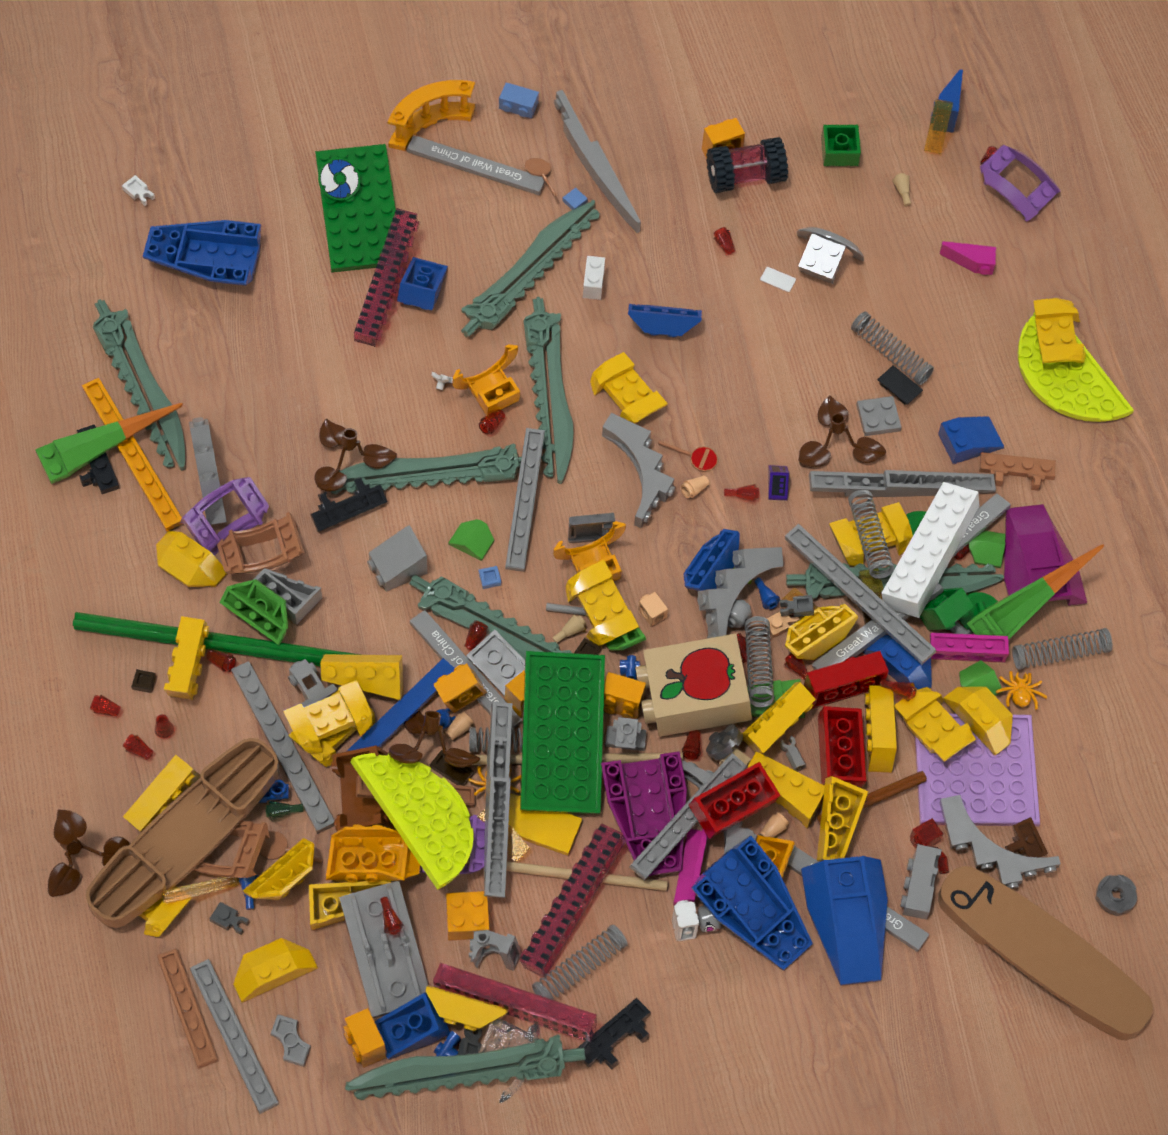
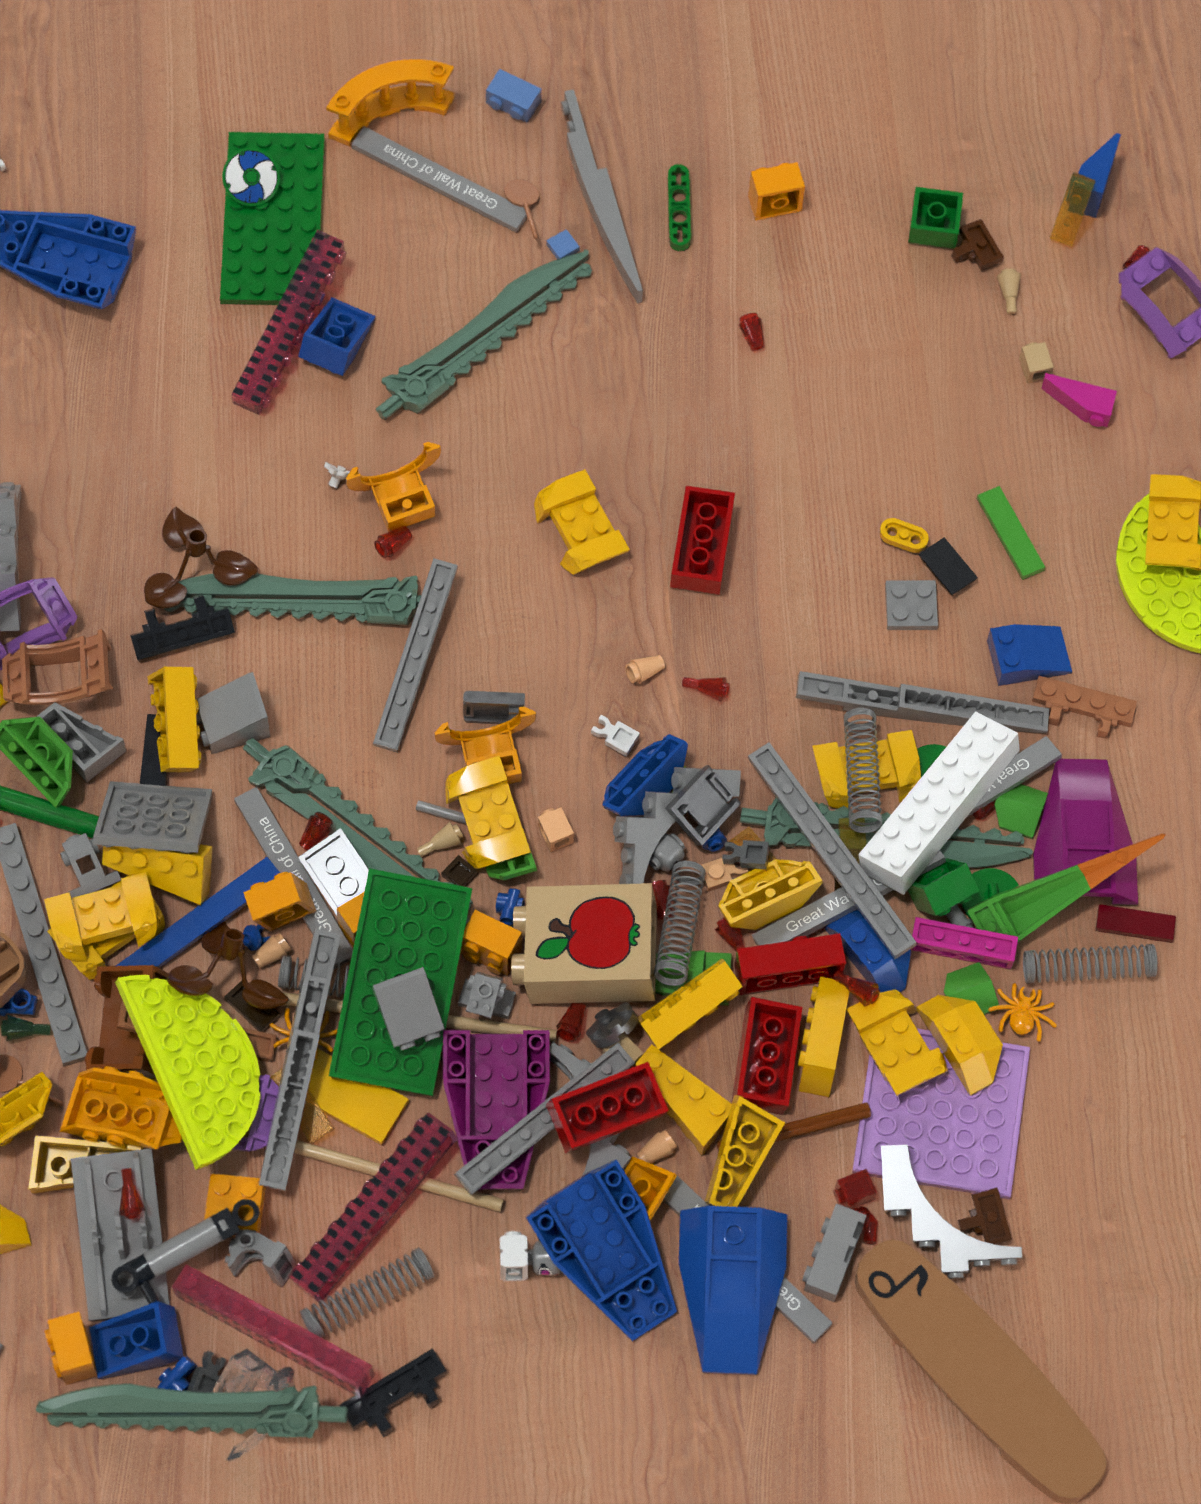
camera: 10 degrees right, 5 degrees up
(344, 595) = (150, 768): none -> black tile
(353, 640) = (153, 817): none -> light grey plate
(356, 567) = (176, 718): none -> yellow wedge
(437, 949) = (182, 1248): none -> piece
(463, 1009) = (203, 1330): yellow wedge -> none
(472, 538) = (338, 698): bright green slope -> none
(489, 577) = (350, 754): medium blue tile -> none
(537, 340) = (475, 431): sand green piece -> none
(573, 749) = (408, 1009): none -> light grey slope
(593, 277) = (565, 359): white brick -> none
(635, 443) = (577, 598): light grey arch -> none
(653, 162) = (679, 207): none -> green beam
(664, 320) = (647, 430): blue wedge -> none
(685, 537) = (618, 737): none -> white plate
(691, 865) = (537, 1184): dark pink fence -> none
(701, 458) = (662, 631): piece -> none
(719, 389) = (702, 540): none -> red brick
(747, 164) = (801, 229): black plate -> none
(761, 572) = (706, 803): none -> flat silver container
(778, 279) = (814, 394): white sticker -> none
(778, 482) = (757, 678): slope -> none
(793, 754) = (703, 1055): light grey bar -> none
(824, 253) = (881, 368): piece -> none
(834, 415) = (849, 595): reddish brown plant -> none
(863, 367) = (904, 535): none -> yellow plate
(874, 161) = (977, 246): none -> reddish brown hinge
(918, 378) = (919, 472): light grey piece -> none
(932, 235) = (1035, 361): none -> tan brick
(939, 356) = (1011, 532): none -> bright green tile
(1087, 616) = (1135, 923): none -> dark red tile
(1114, 905) = (1091, 1323): flat silver plate -> none

